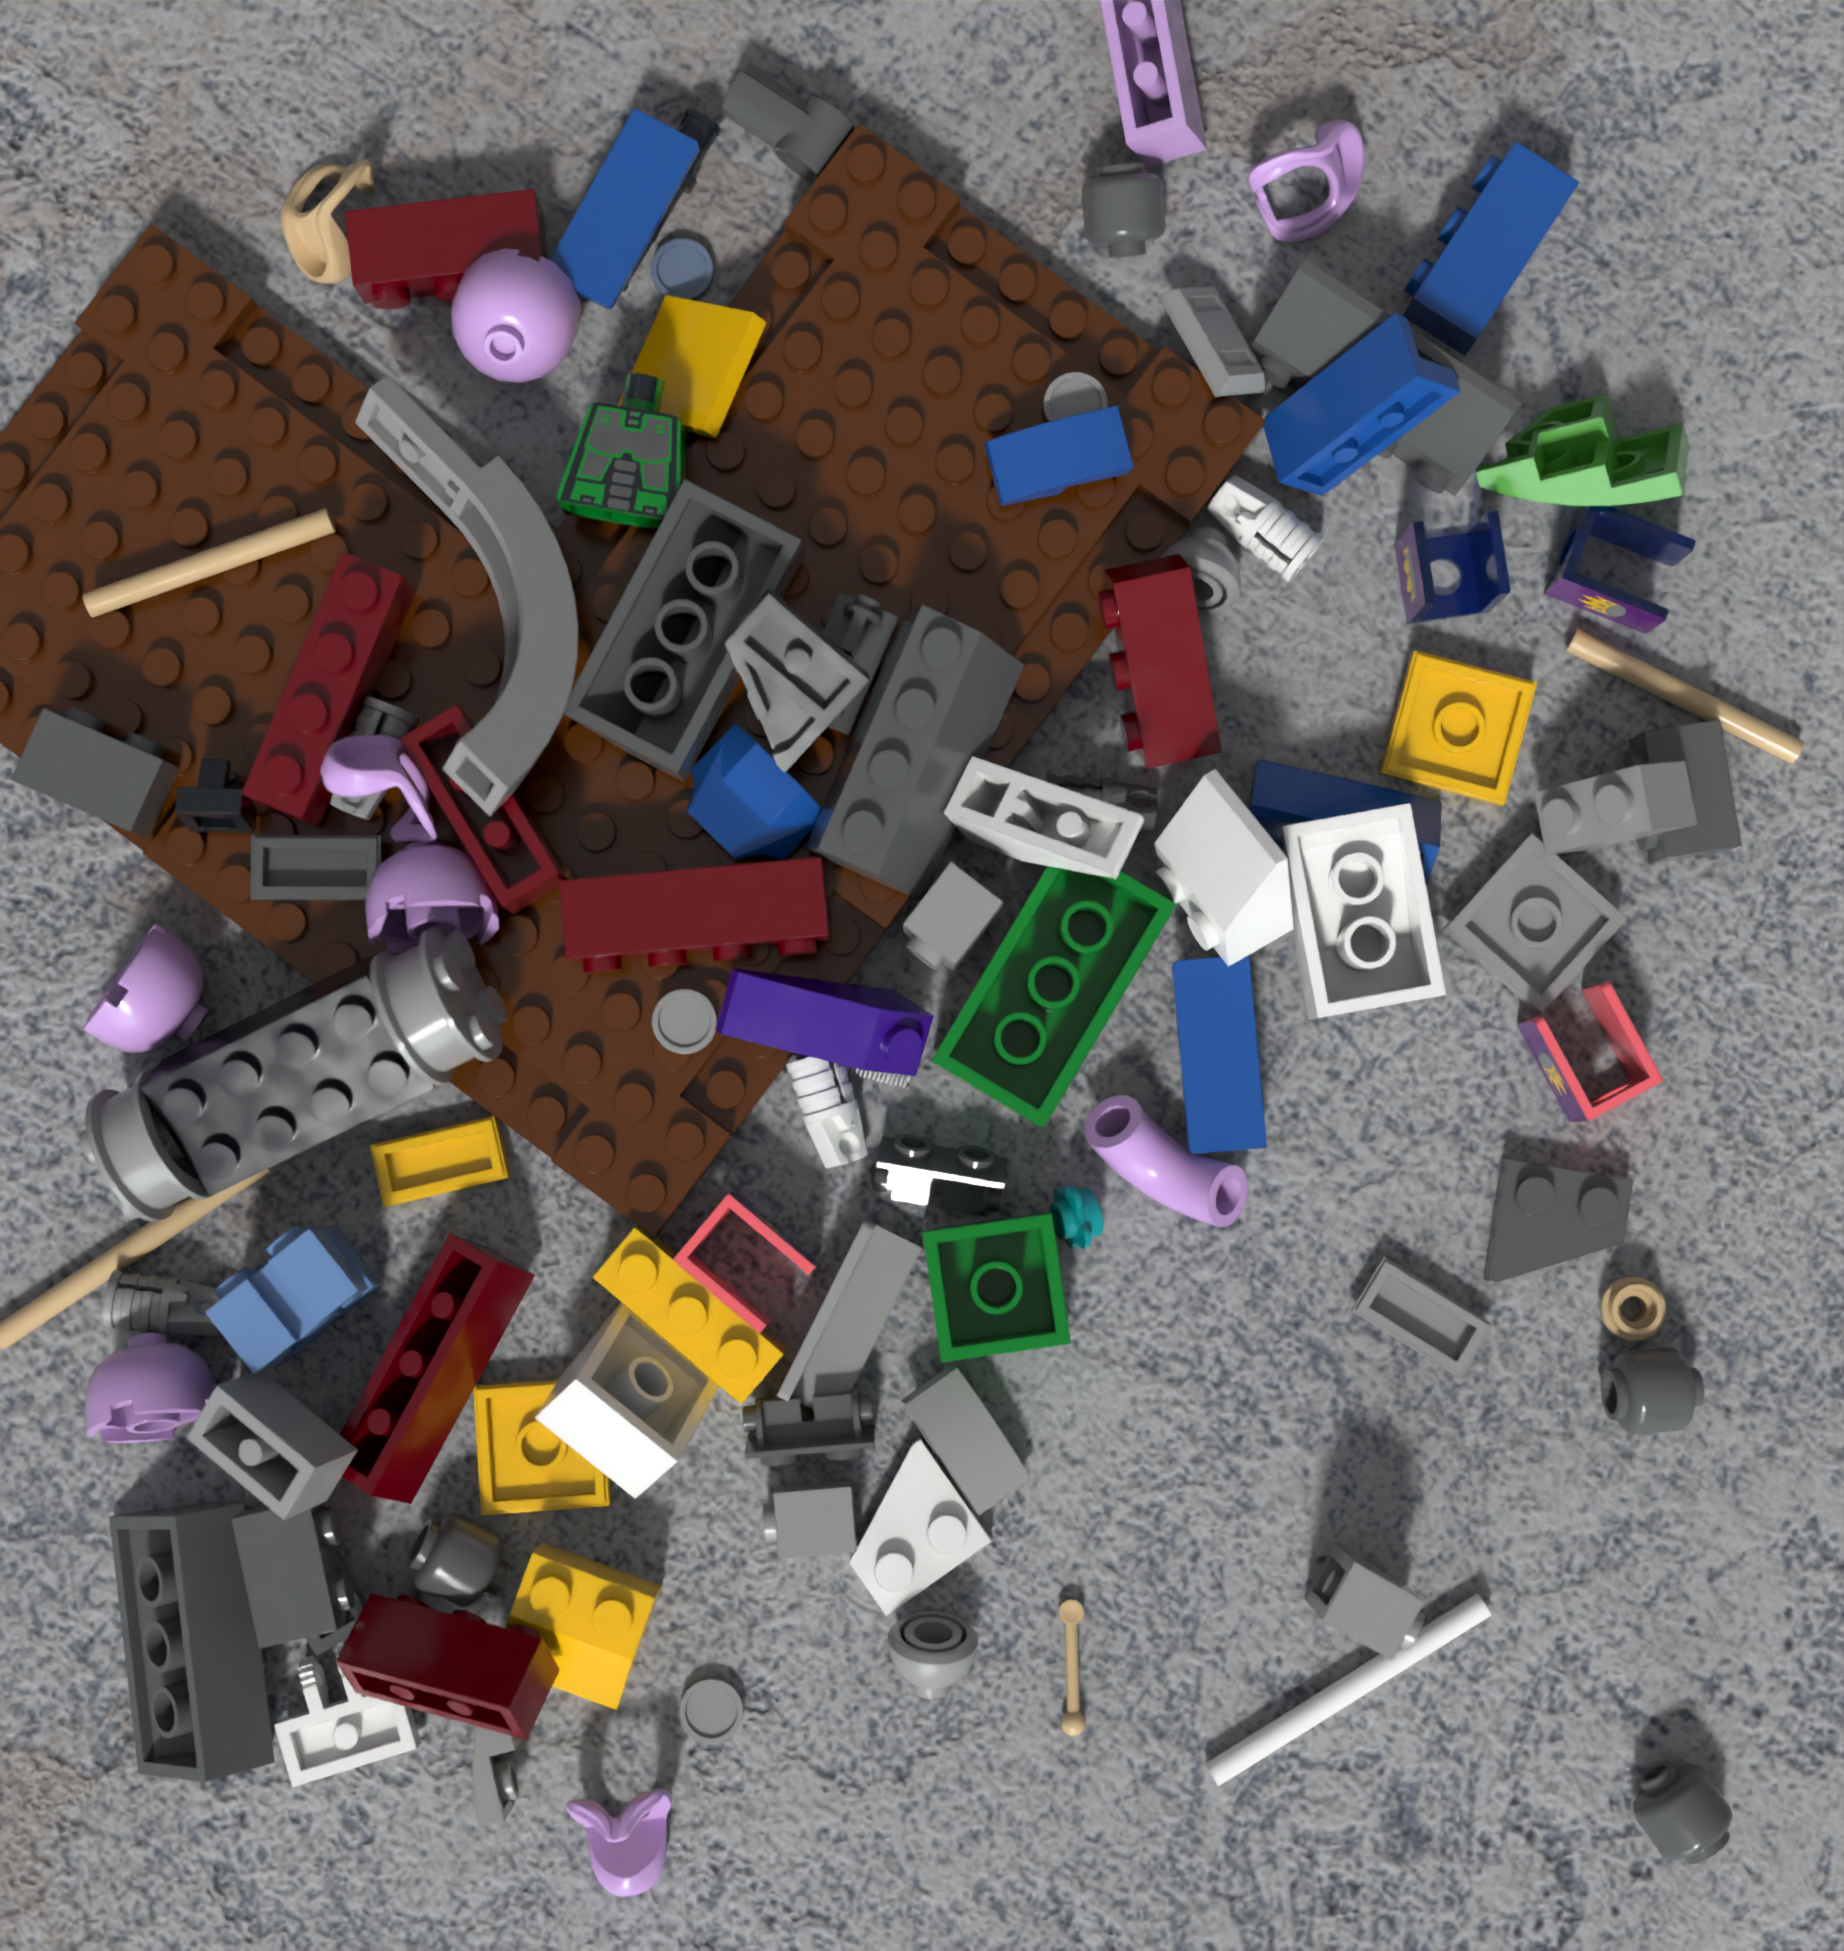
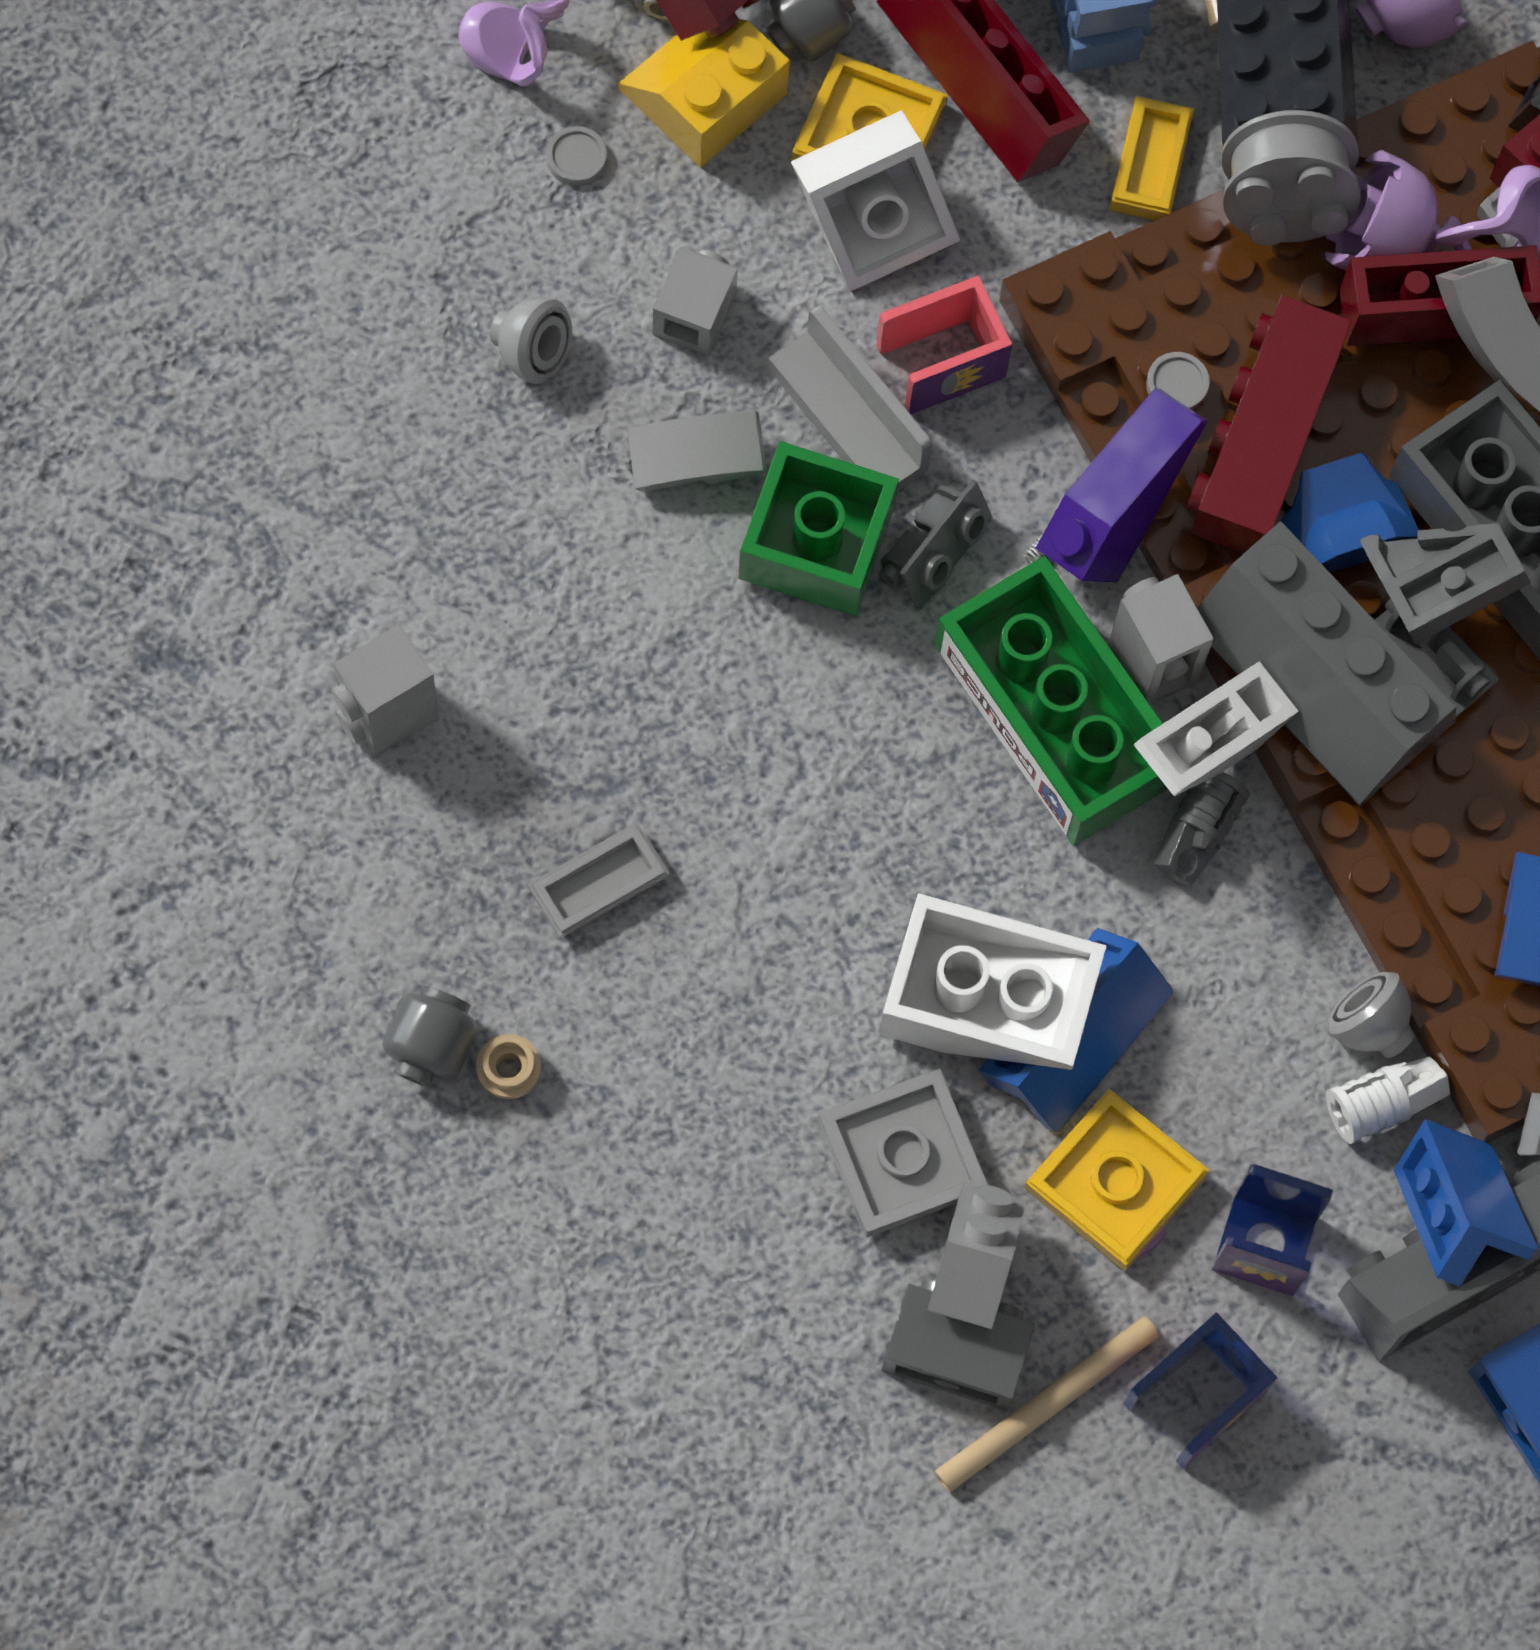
camera: 110 degrees right, 15 degrees down
(313, 866) = (1459, 151): dark grey tile -> none
(688, 1314) = (918, 268): yellow brick -> none
(785, 1435) = (762, 350): dark grey hinge -> none
(829, 1110) = (1033, 475): white hinge -> none
(916, 1532) = (636, 376): white wing -> none
(1071, 1613) = (500, 471): tan hinge -> none
(1076, 1216) = (842, 630): teal plate -> none
(1160, 661) = (1307, 925): dark red brick -> none
(1163, 1165) = (851, 722): lavender cylinder -> none
(1218, 1055) = (923, 814): blue panel -> none
(1224, 872) = (1085, 880): white slope -> none
(1345, 1691) = (310, 663): white piece -> none
(1552, 1217) = (627, 1040): dark grey wing -> none
(1578, 459) = (1316, 1409): bright green slope -> none
(1622, 1038) = (758, 1098): coral piece -> none
(1682, 1812) = (49, 880): dark grey head -> none

